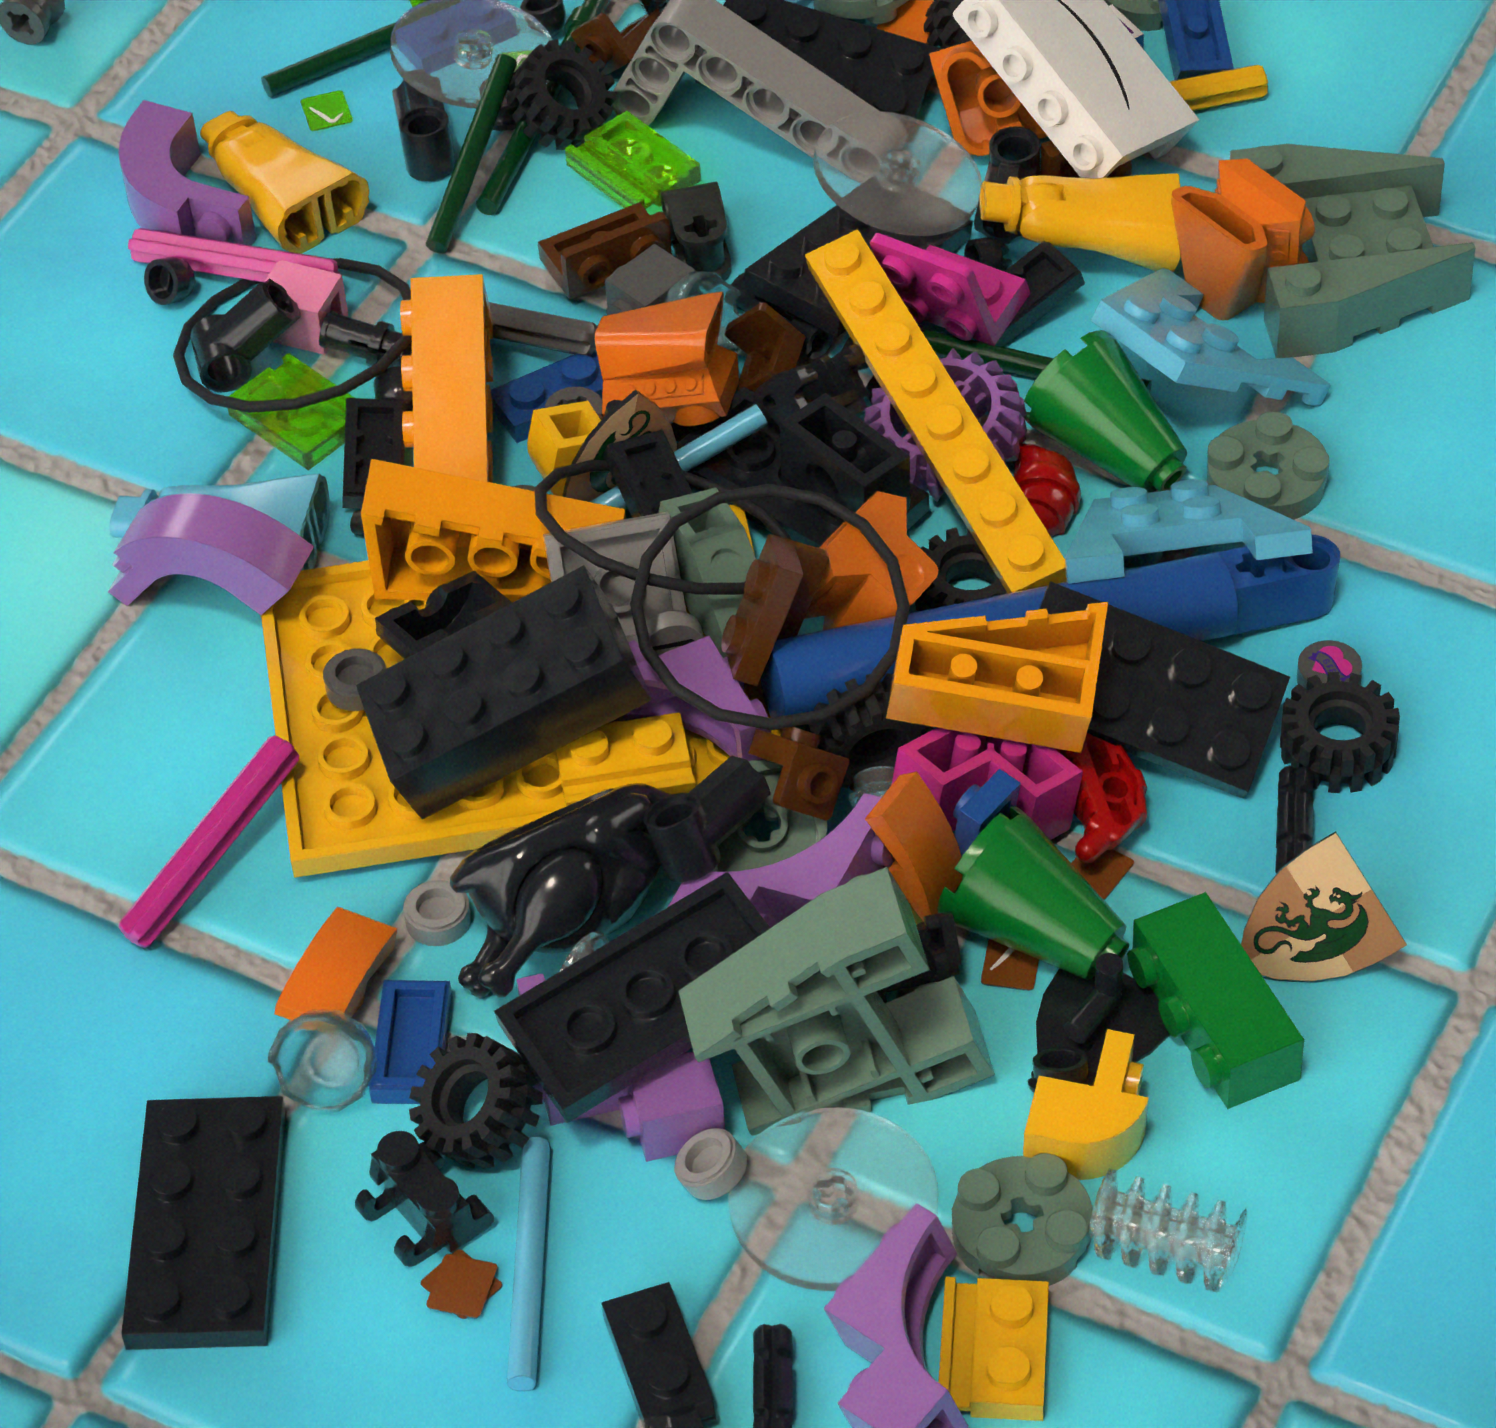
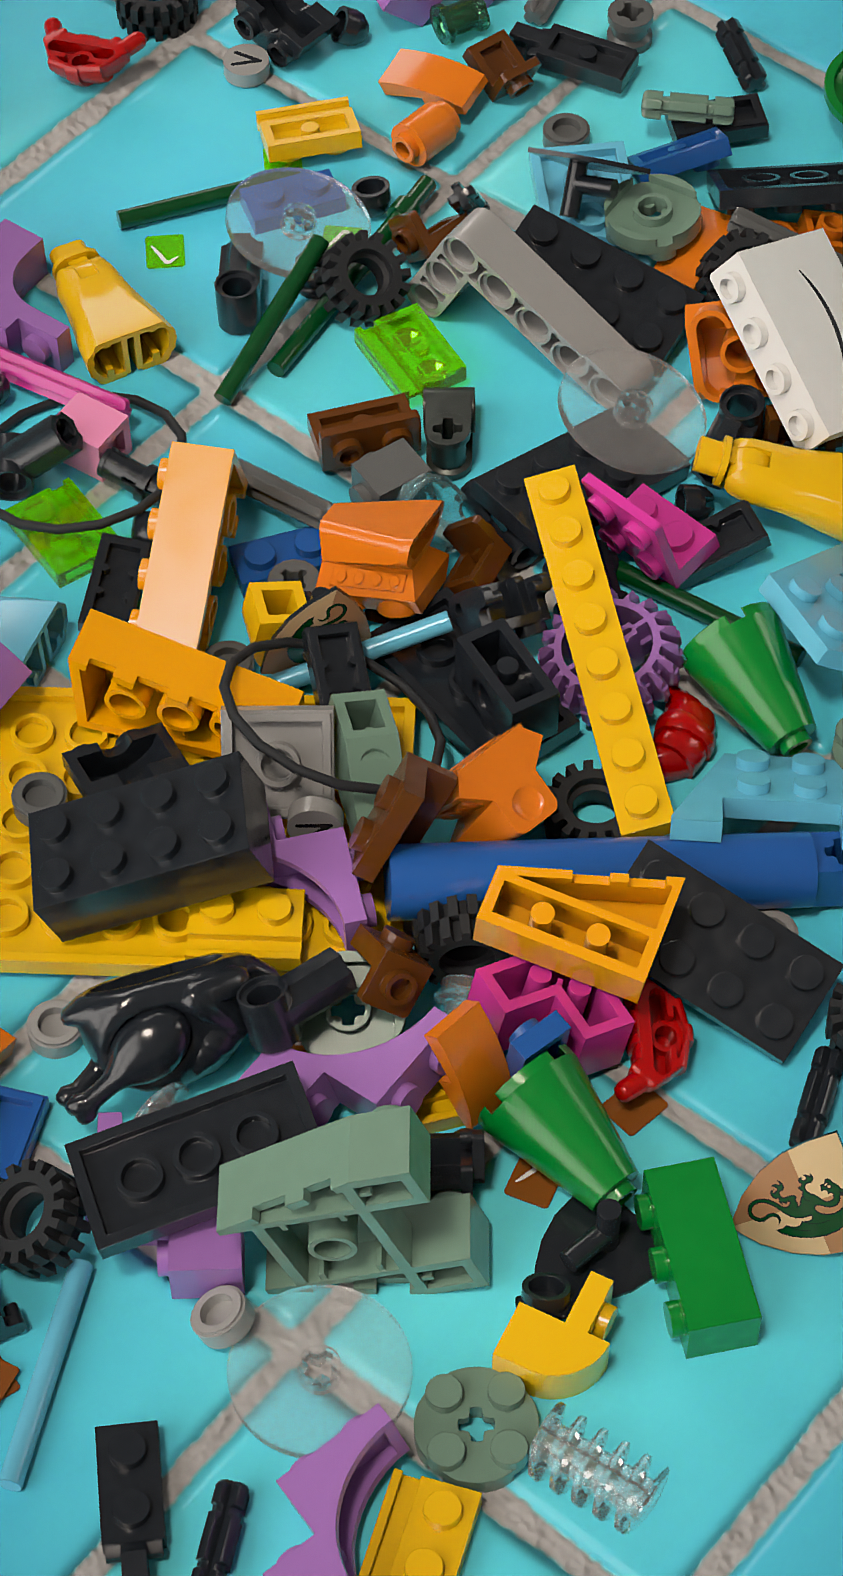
camera: 10 degrees right, 5 degrees up
(744, 718) = (392, 707): black piece -> none

